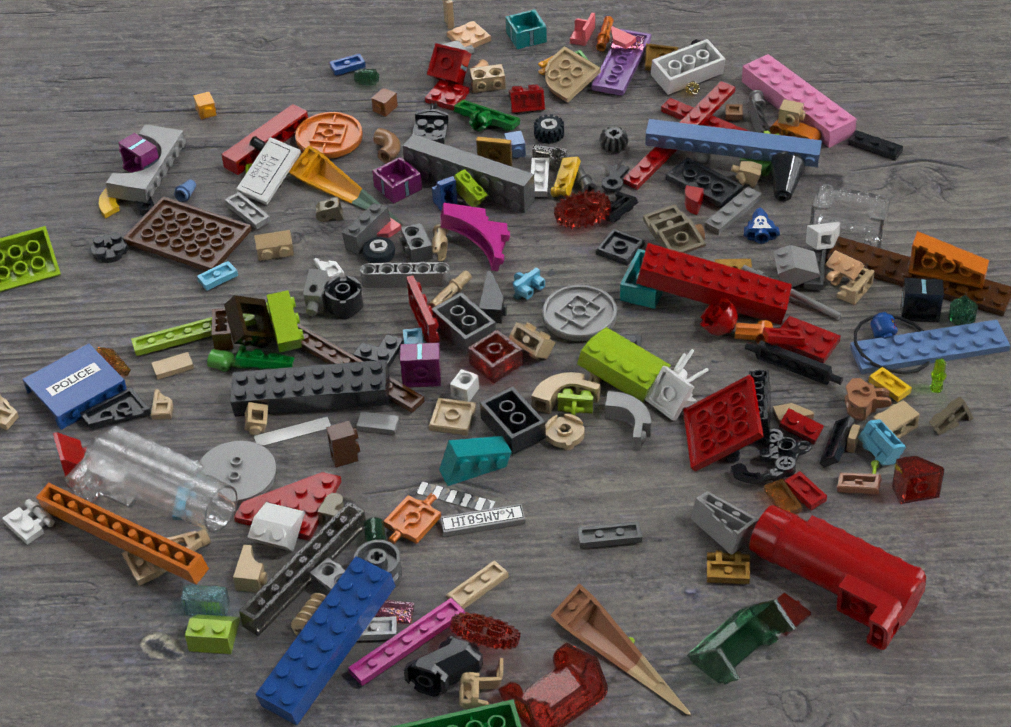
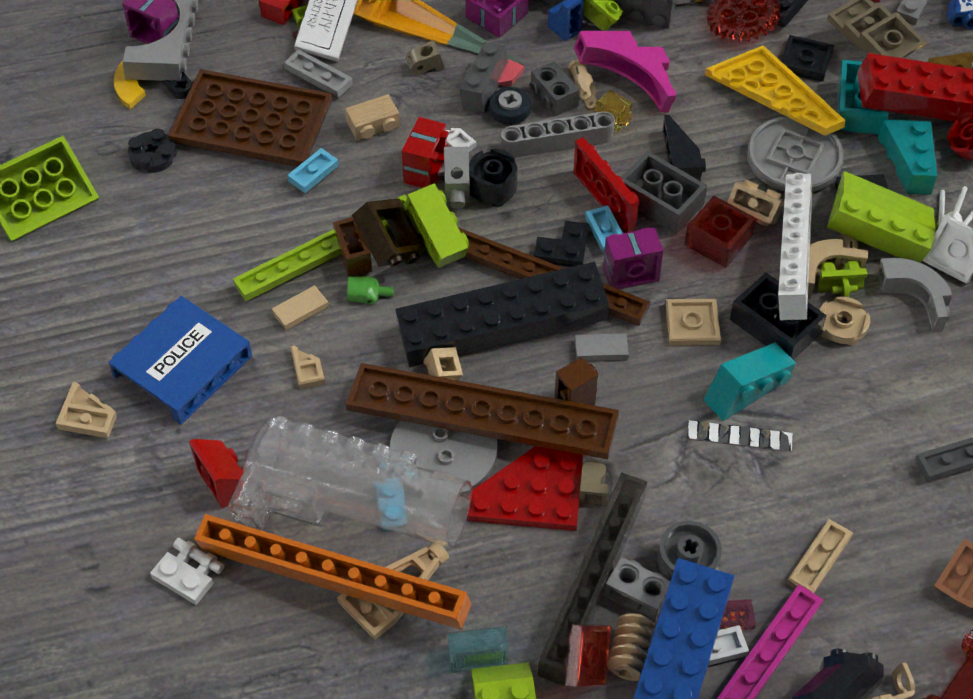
camera: 15 degrees left, 10 degrees up
(114, 360) = (221, 313): clear orange plate -> none
(115, 409) = (248, 384): black wing -> none
(184, 191) = (225, 57): medium blue cone -> none
(249, 573) = (521, 595): tan arch -> none
(258, 359) = (412, 282): green wing -> none
(271, 449) = (483, 410): none -> reddish brown plate
(275, 613) = (588, 655): none -> clear red plate
(276, 526) = (534, 521): white slope -> none
(292, 431) = (507, 369): white sticker -> none
(295, 269) = (424, 153): none -> red container
(374, 529) = (662, 506): clear green brick -> none
(412, 519) = (701, 478): orange plate -> none
(455, 286) = (625, 141): tan pin -> none
(456, 262) = (617, 106): none -> clear yellow brick
(464, 386) = (694, 278): white brick -> none
(472, 626) = (870, 628): clear red gear -> none
(482, 520) = (789, 463): tile -> none
(526, 282) = (712, 123): medium azure hips -> none
(541, 371) = (795, 247): none -> white brick
(583, 262) = (773, 84): none -> yellow wing
(668, 323) = (912, 152): none -> teal wedge

